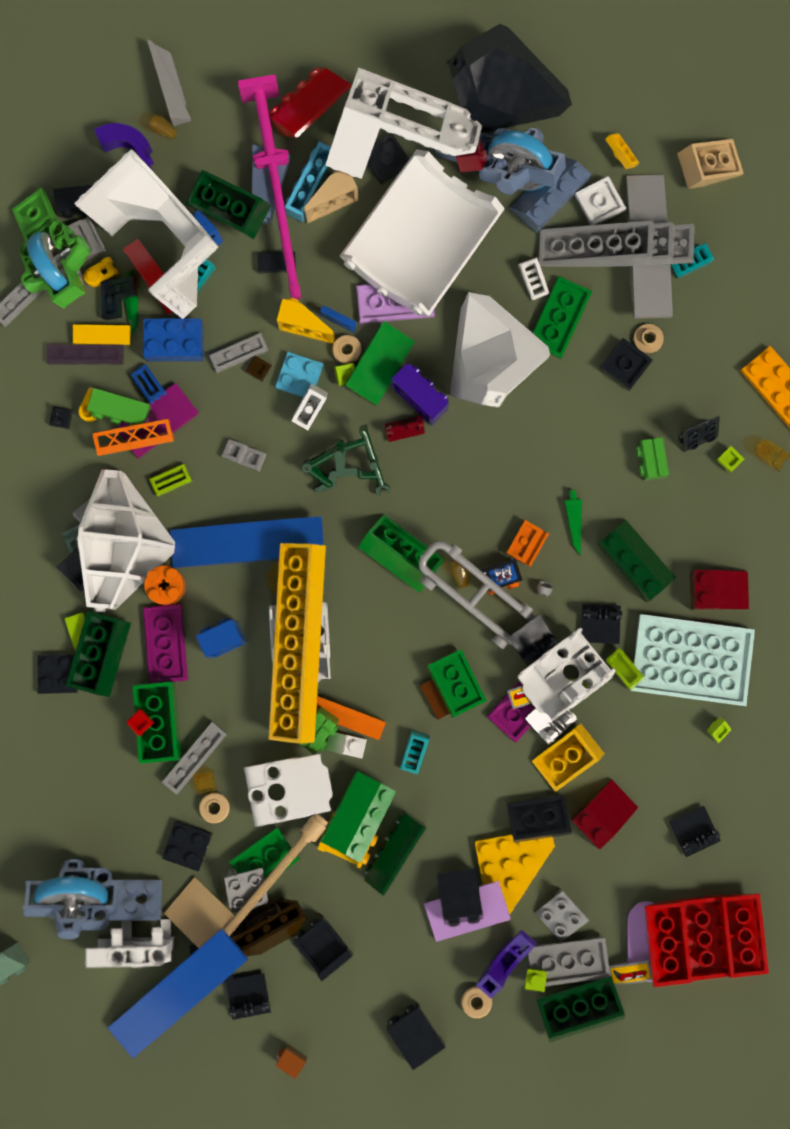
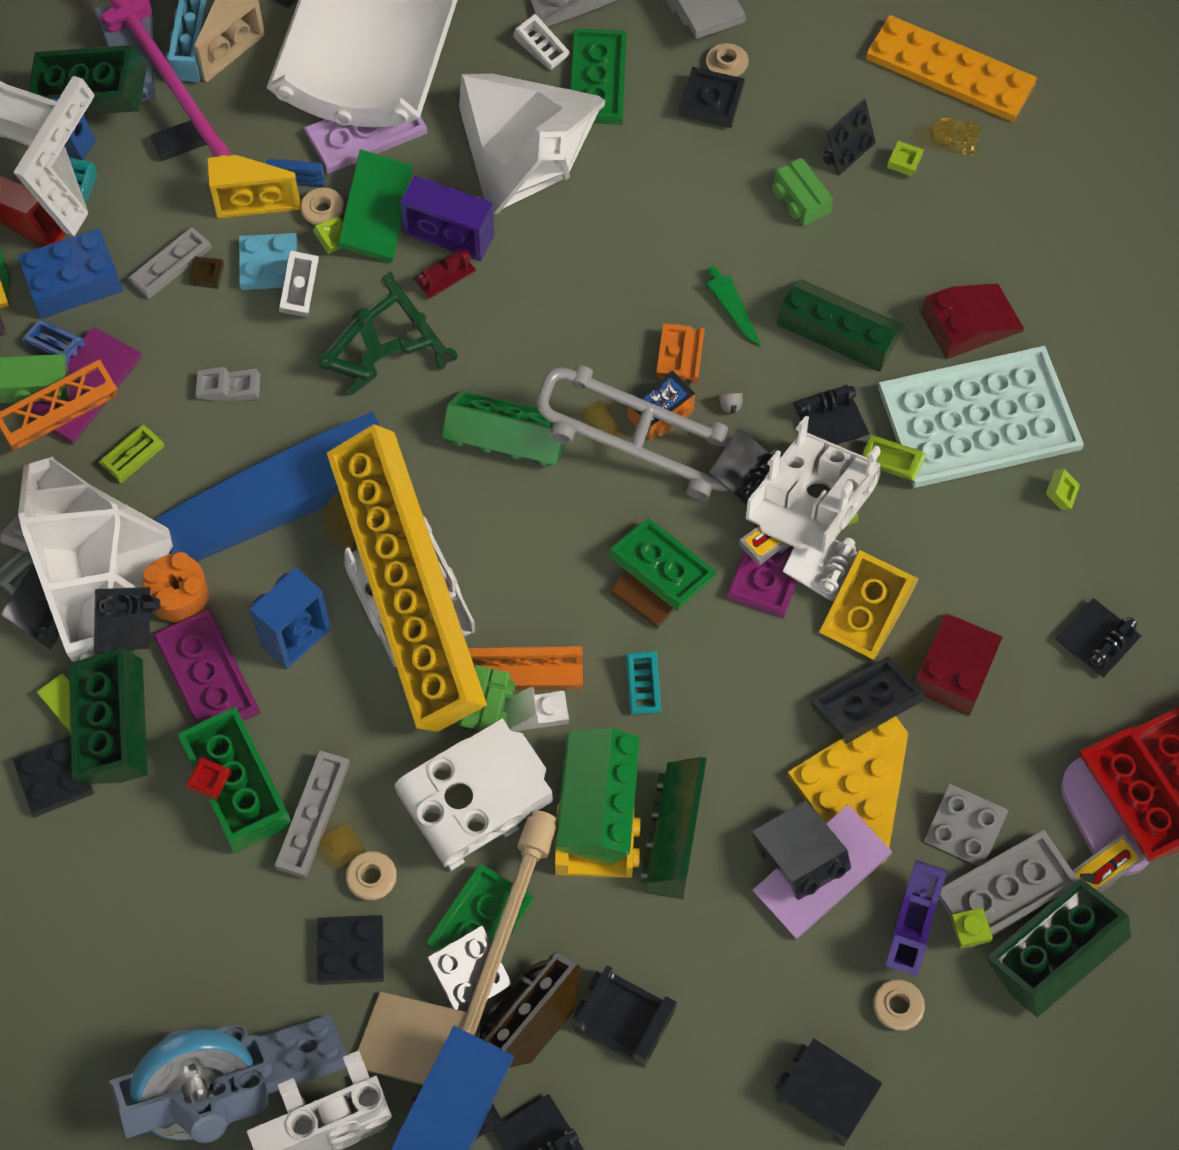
camera: 20 degrees left, 20 degrees down
(125, 600) = (123, 618): none -> black hinge

